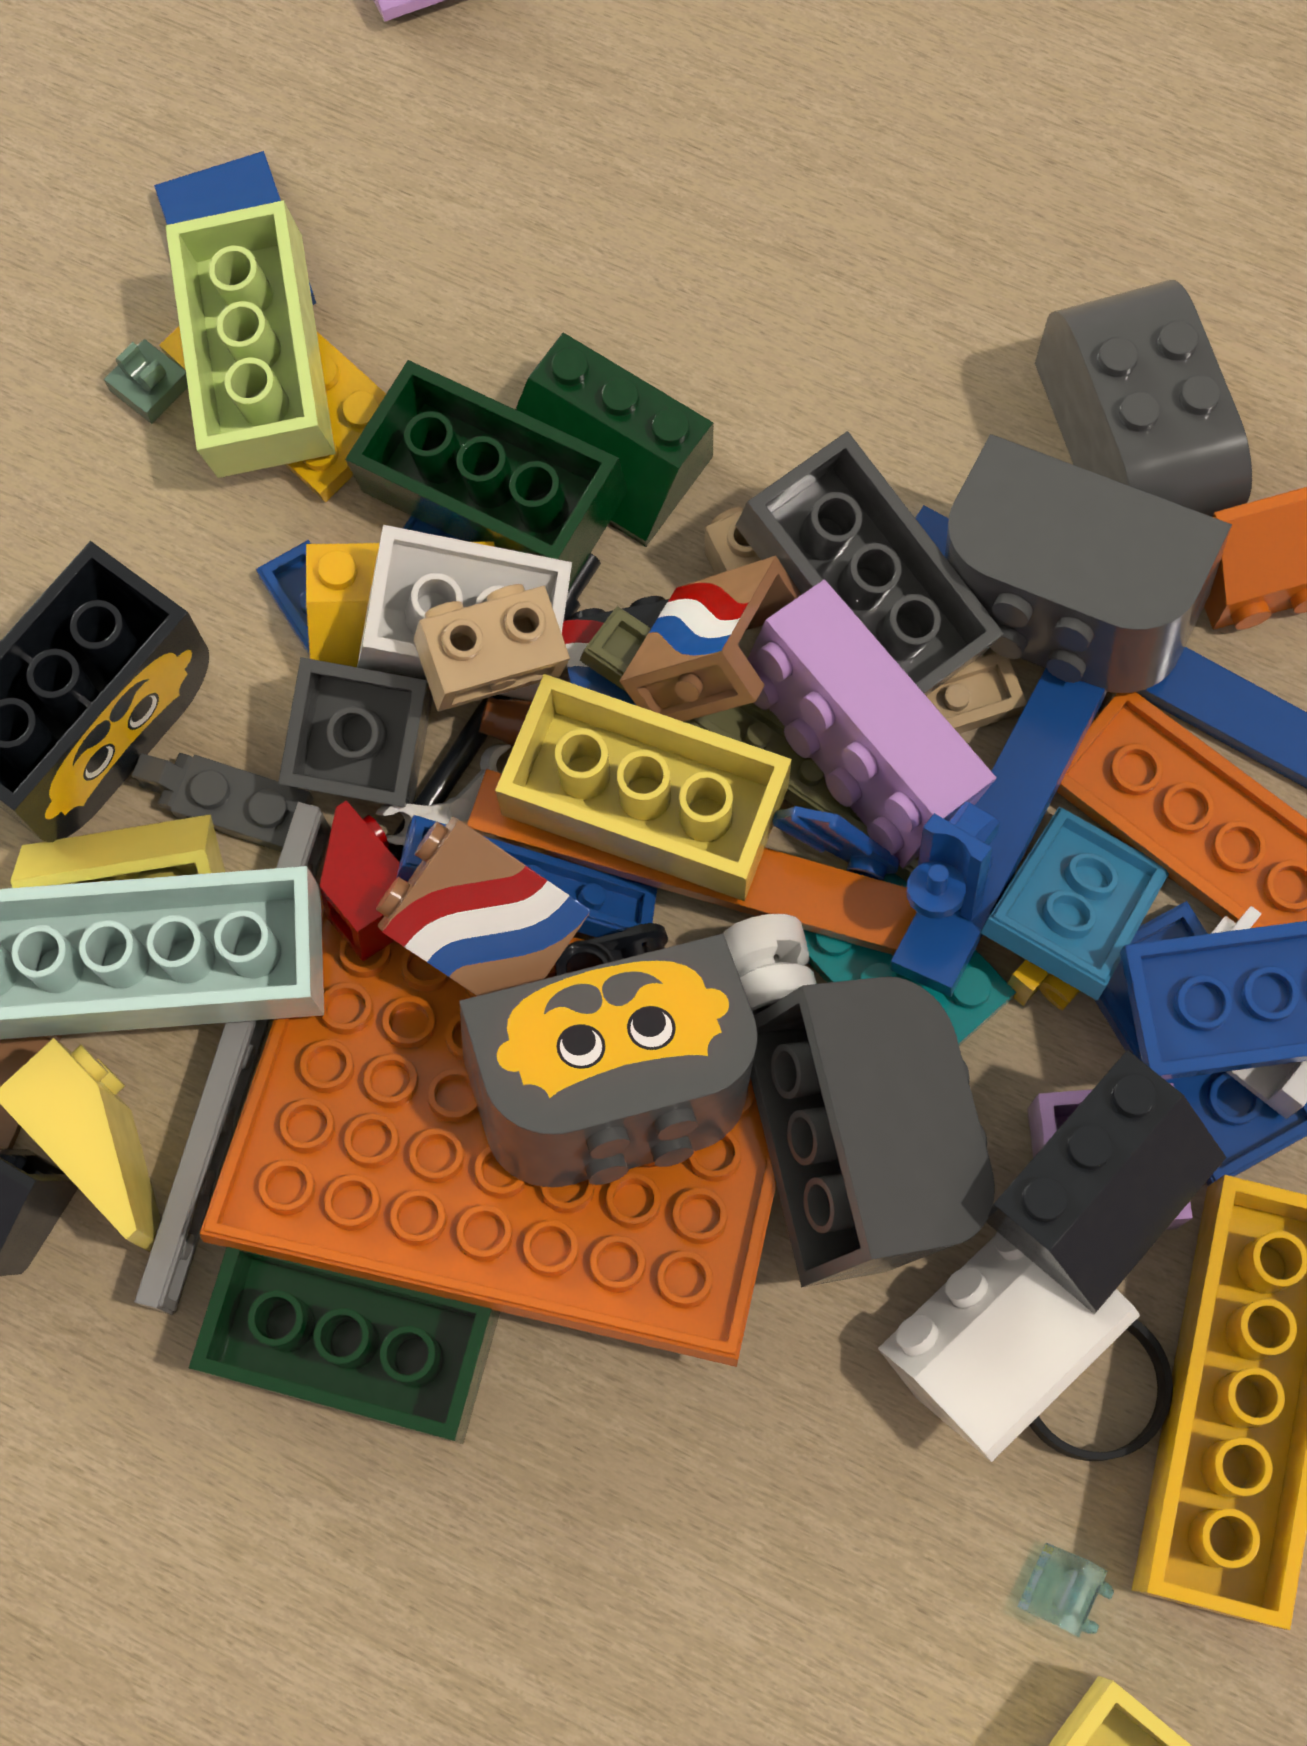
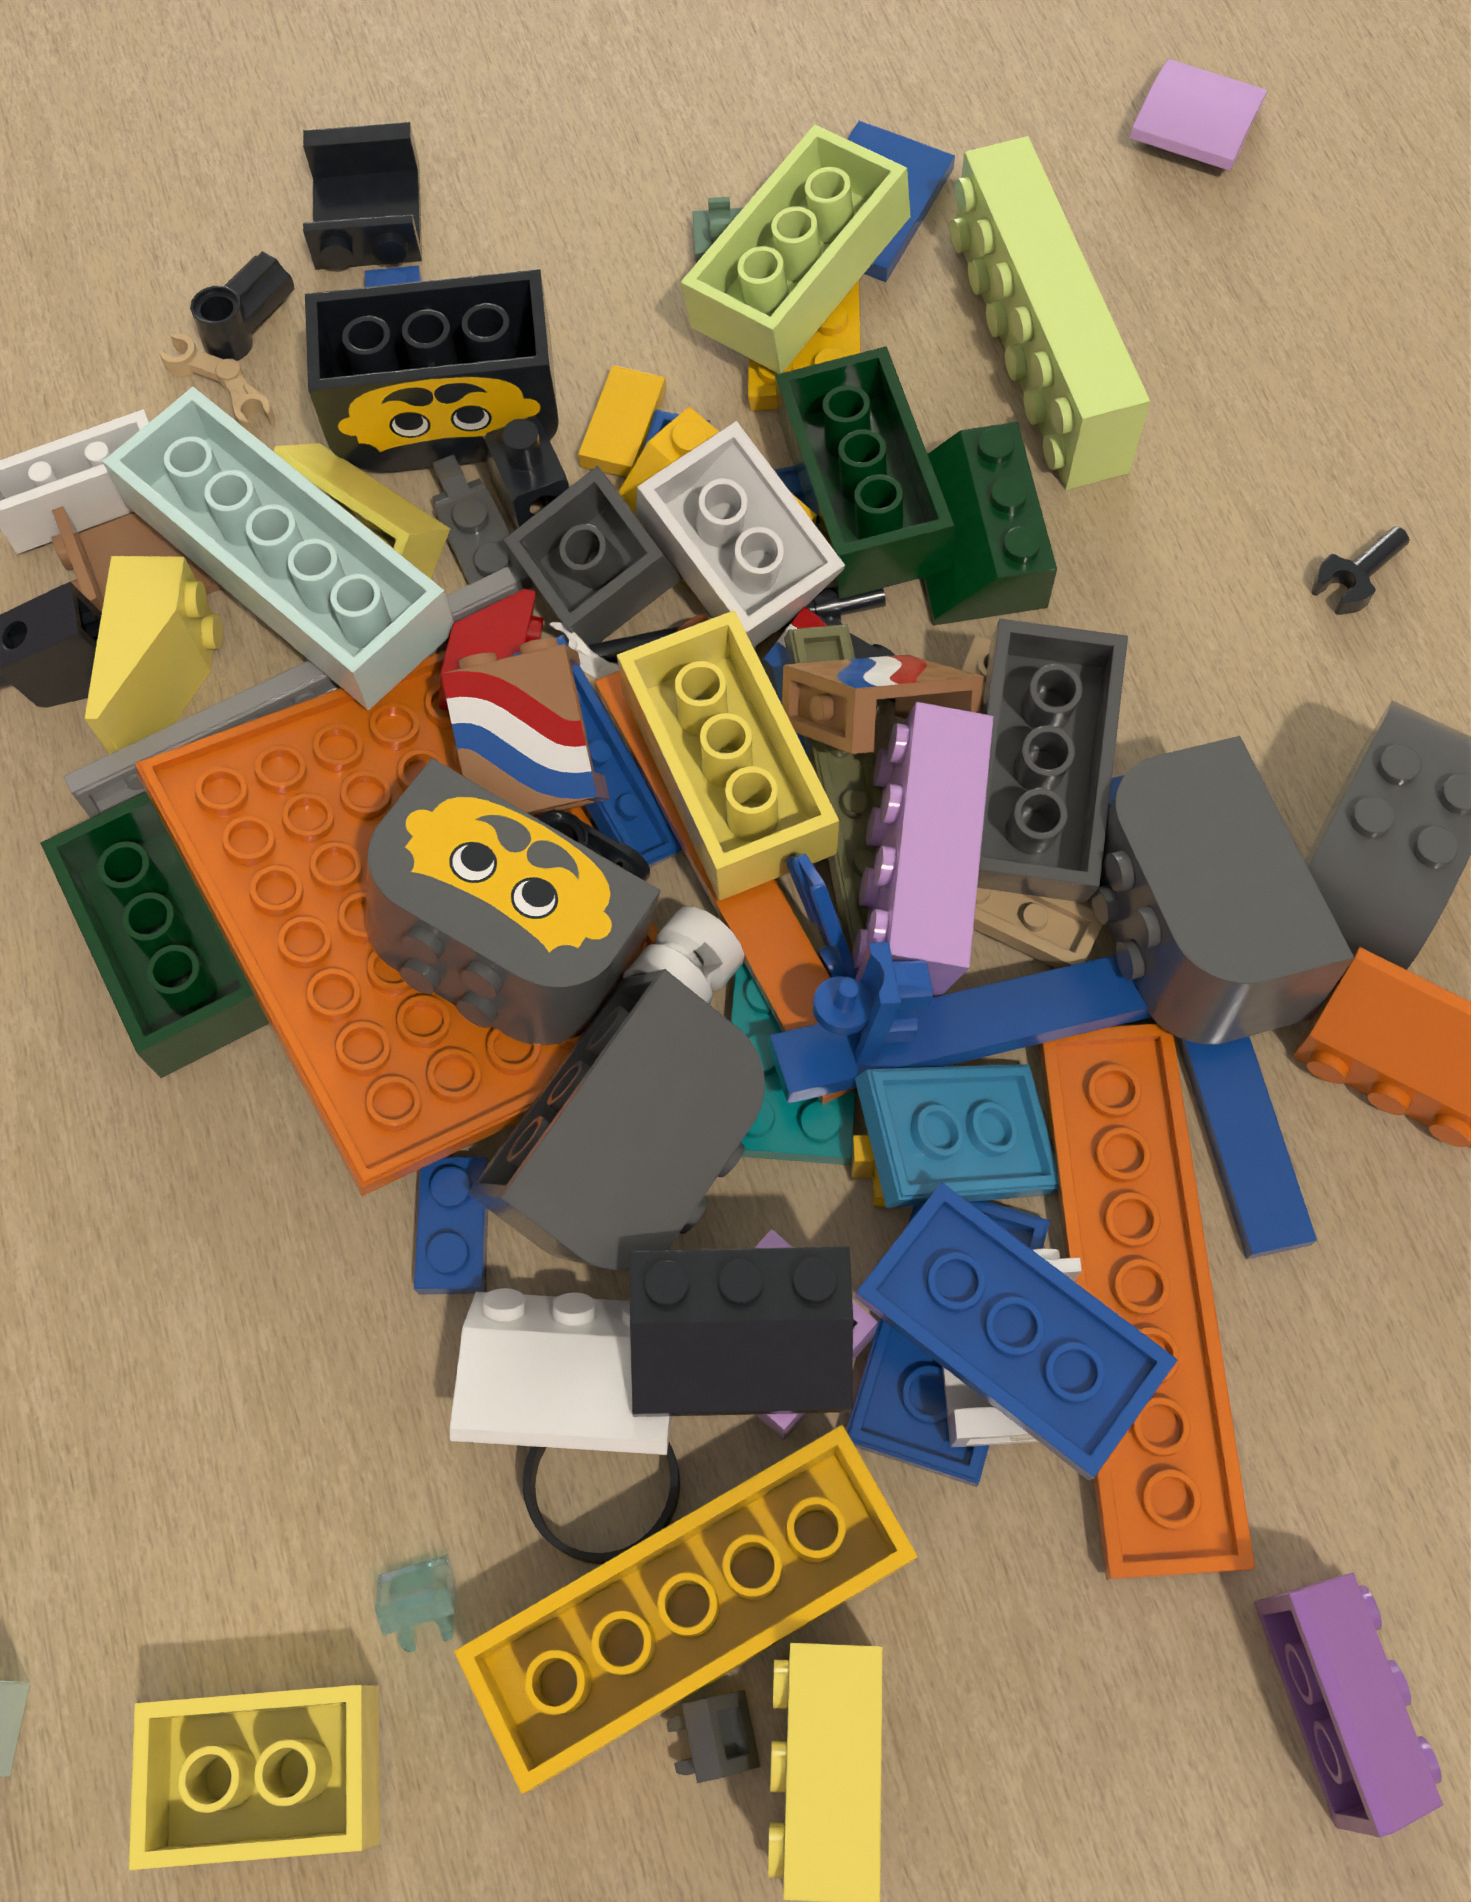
camera: 45 degrees right, 5 degrees down
(231, 719) = (523, 467): none -> black torso
(239, 602) = (621, 420): none -> yellow tile
(487, 222) = (1048, 314): none -> yellowish green brick
(490, 645) = (717, 558): tan brick -> none
(801, 1325) = (451, 1228): none -> blue plate
(901, 230) = (1356, 573): none -> black bar

